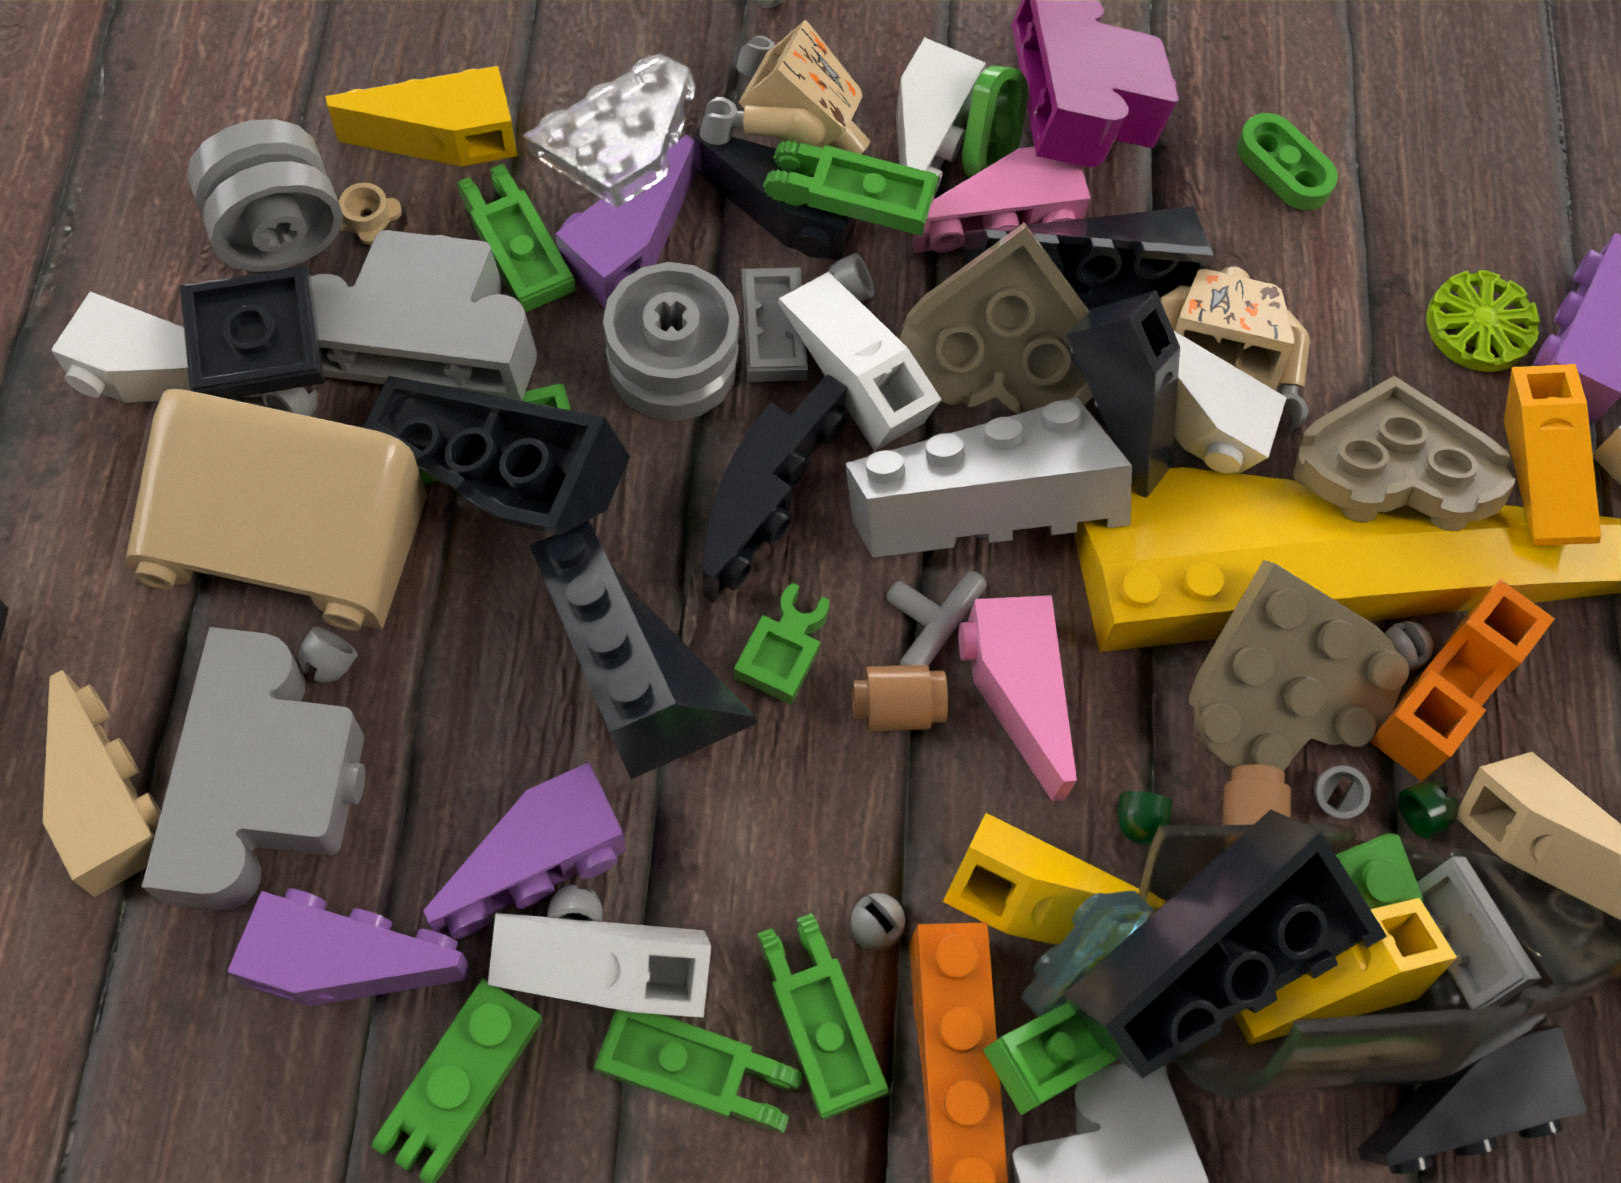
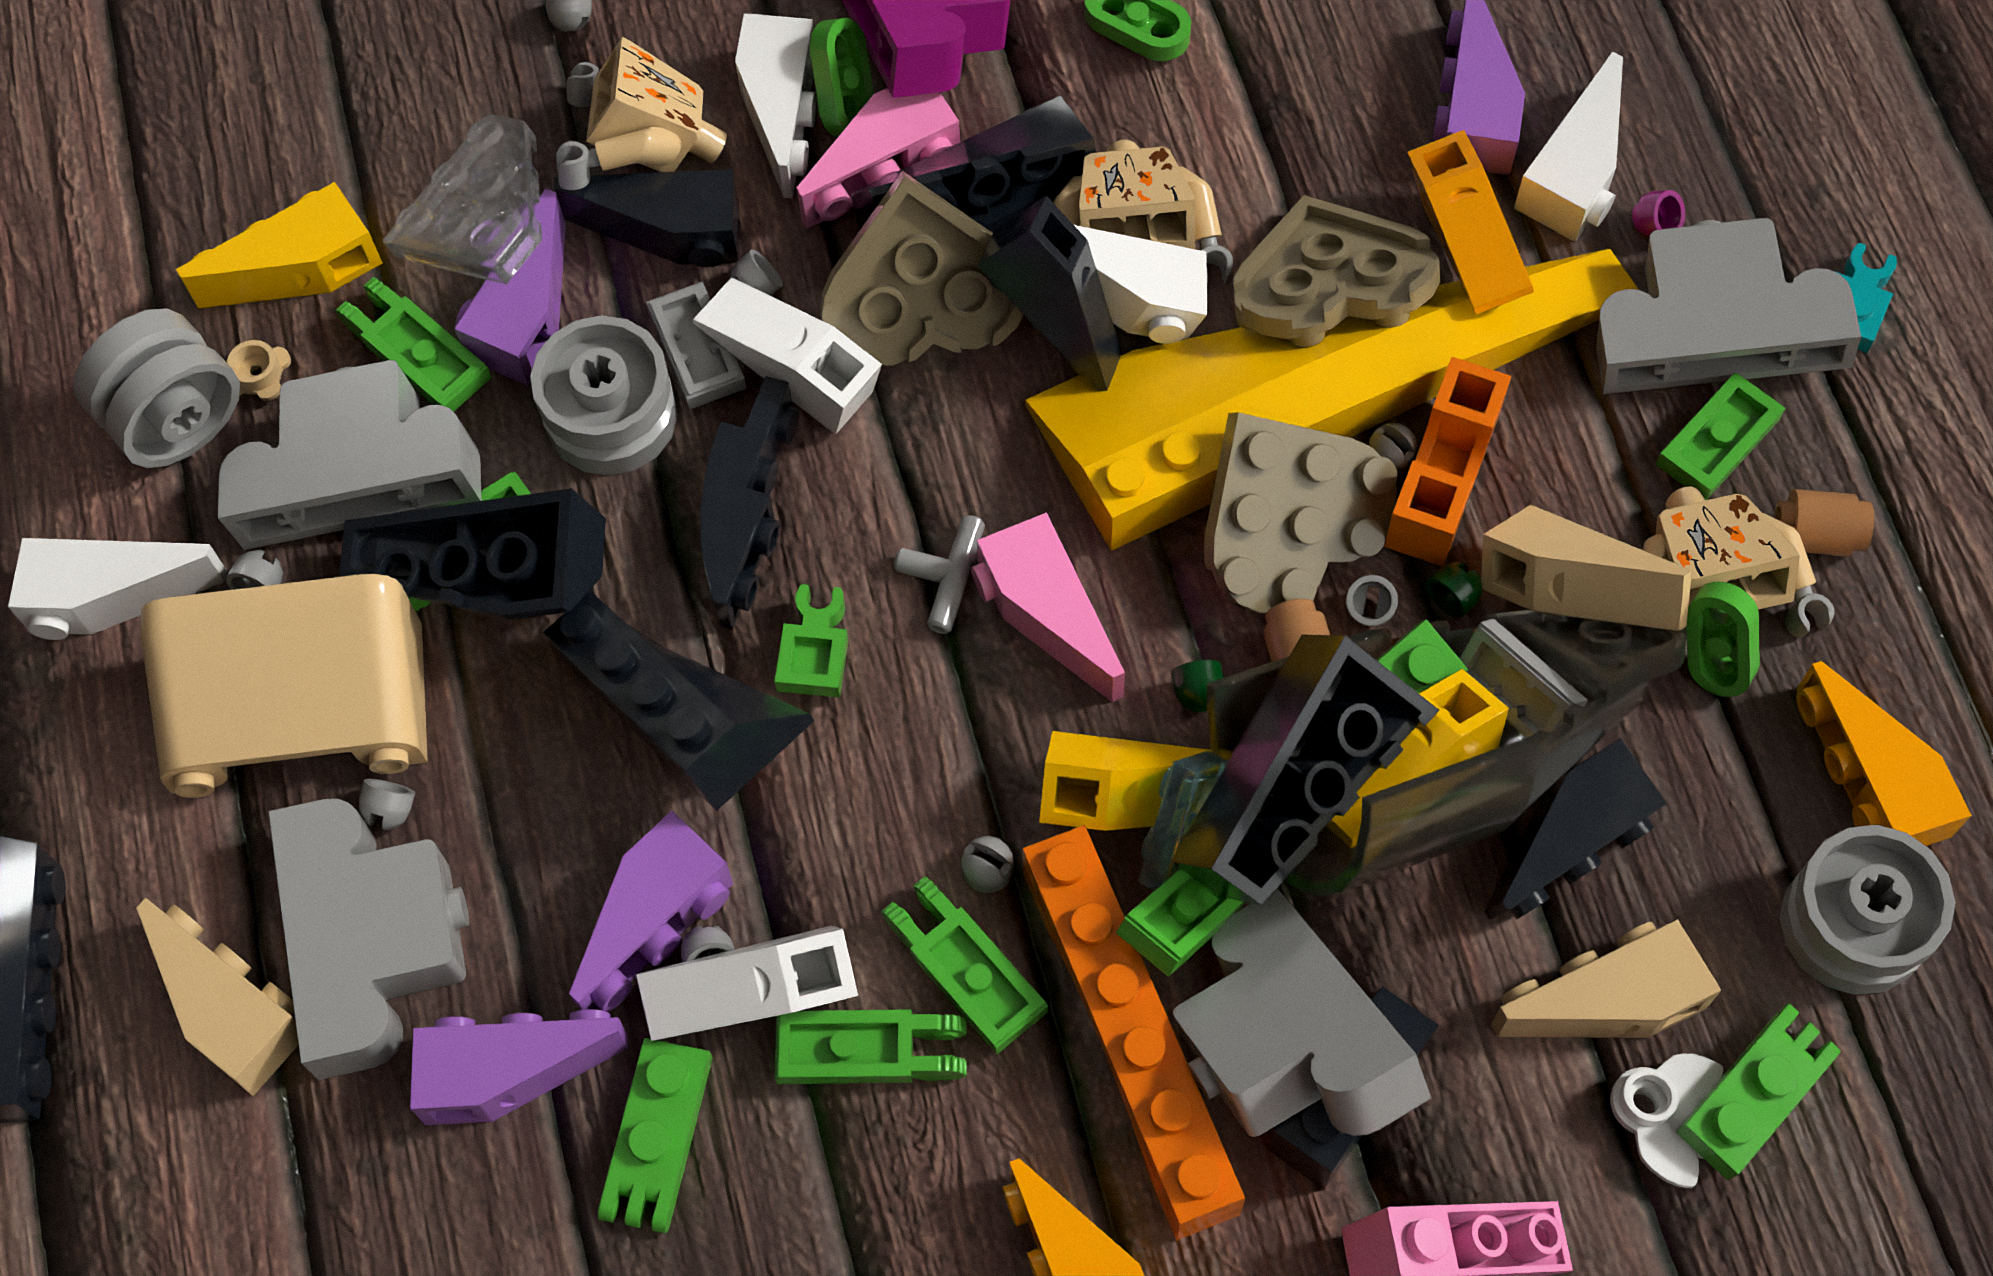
camera: 10 degrees left, 0 degrees up
(252, 334) = (200, 524): black plate -> none
(852, 185) = (726, 186): bright green hinge -> none
(900, 697) = (938, 655): medium nougat brick -> none
(990, 480) = (953, 425): light grey wedge -> none
(1483, 321) = (1372, 113): lime wheel -> none

